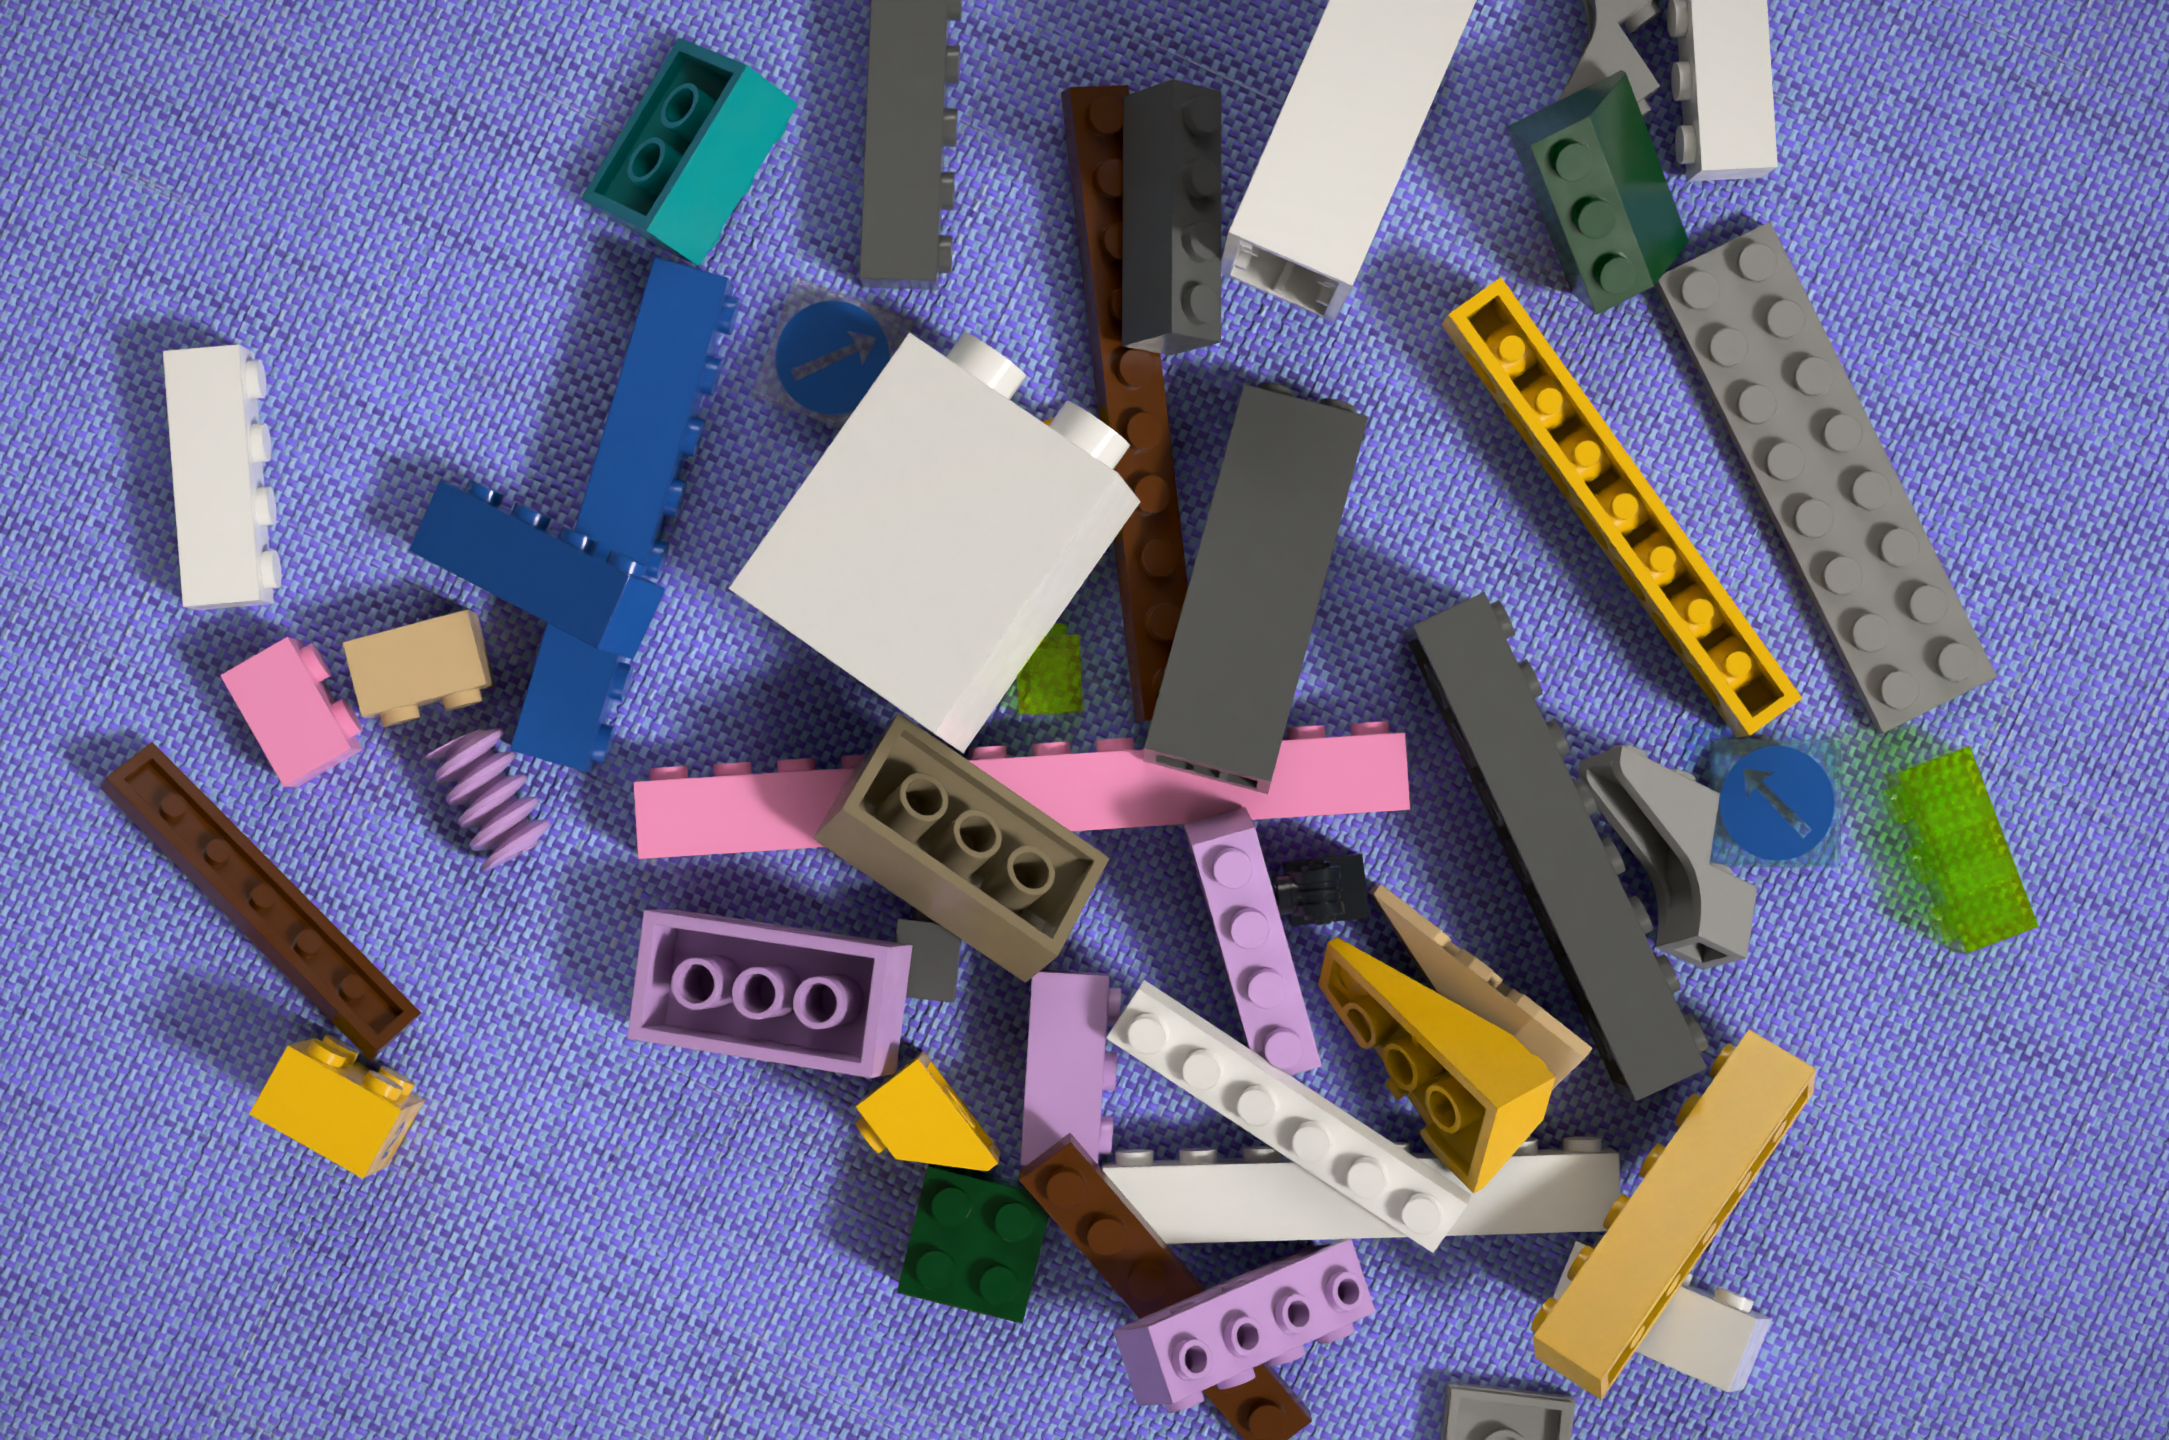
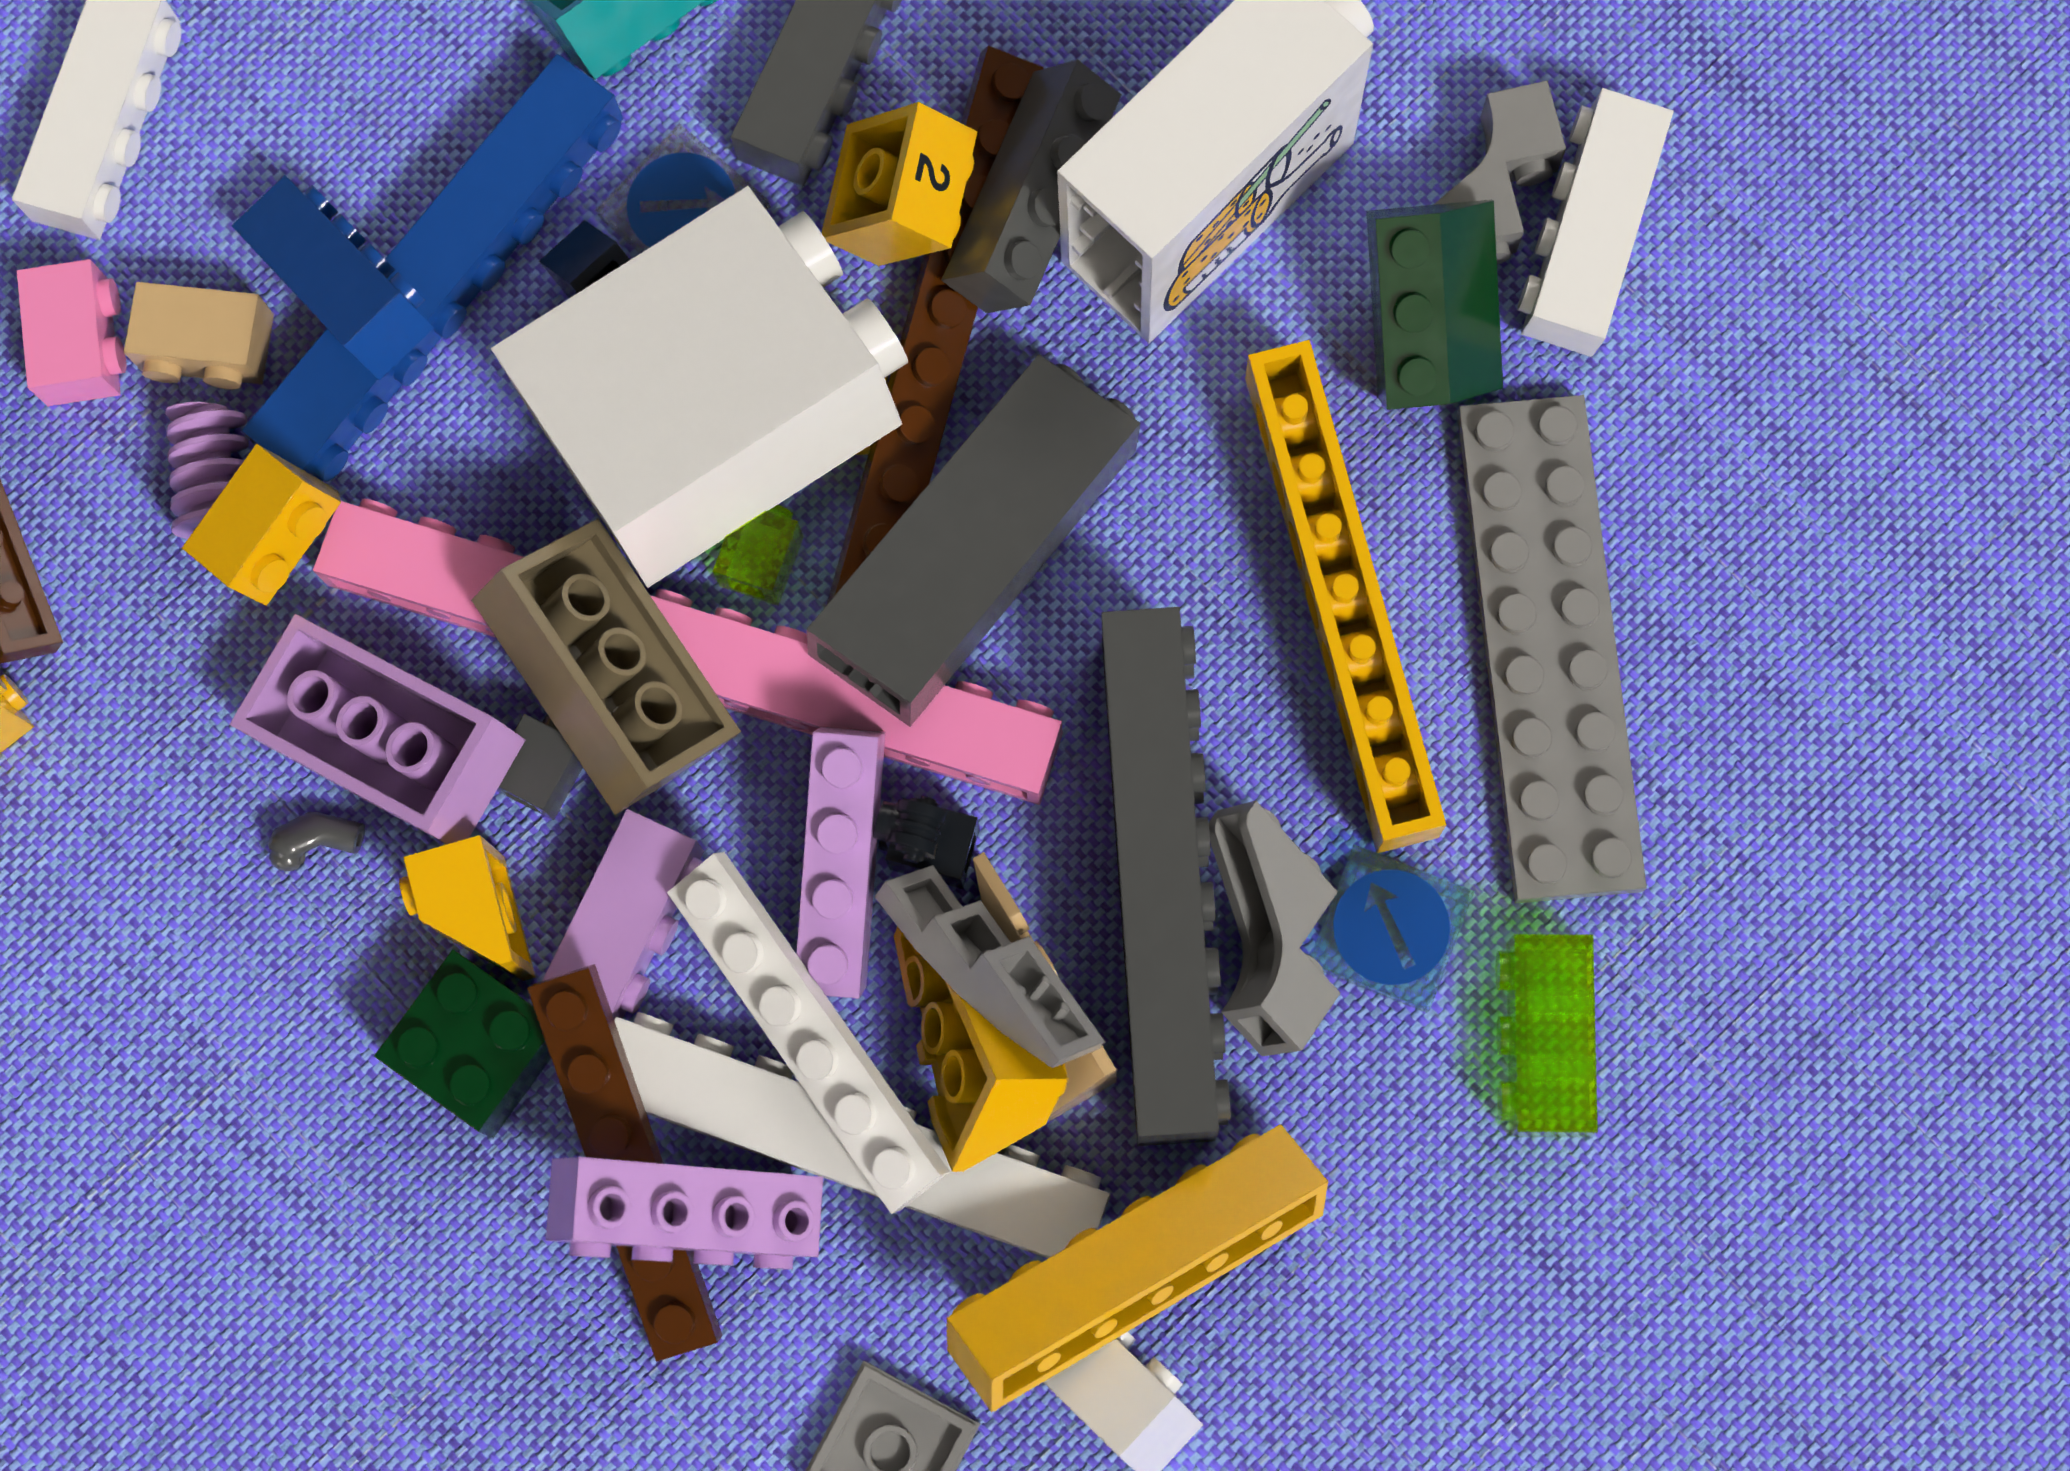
camera: 30 degrees right, 10 degrees down
(582, 840) = (262, 524): none -> yellow slope
(732, 1103) = (309, 831): none -> dark grey arm
(773, 457) = (583, 258): none -> black brick
(1045, 267) = (899, 184): none -> yellow brick
(1456, 1008) = (998, 978): none -> light grey slope

